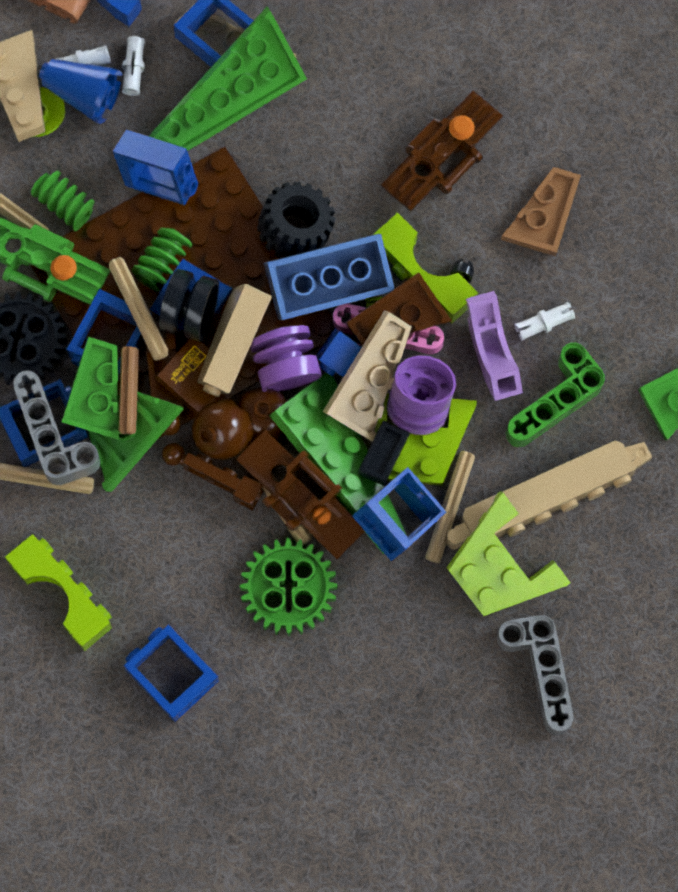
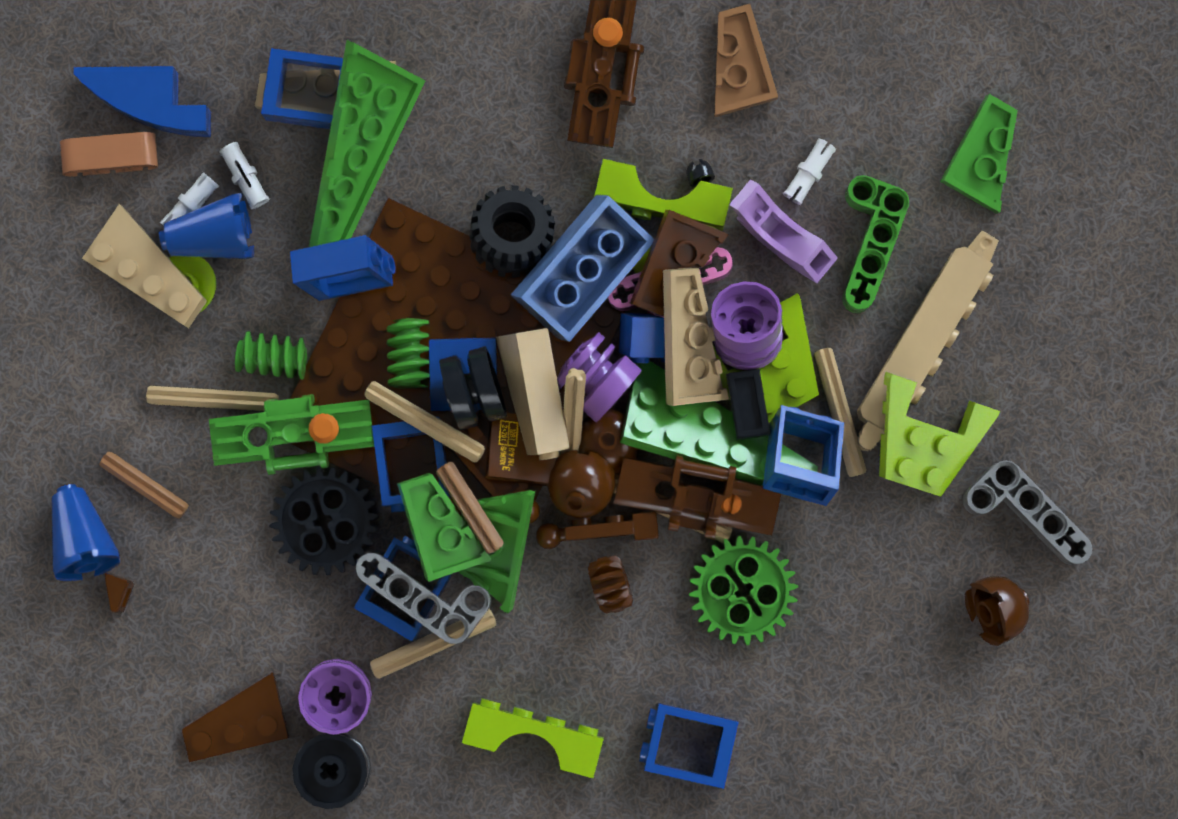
camera: 30 degrees left, 10 degrees up
(193, 516) = (610, 584): none -> reddish brown gear
(251, 367) = (574, 407): none -> tan axle
(472, 723) = (999, 607): none -> reddish brown cylinder

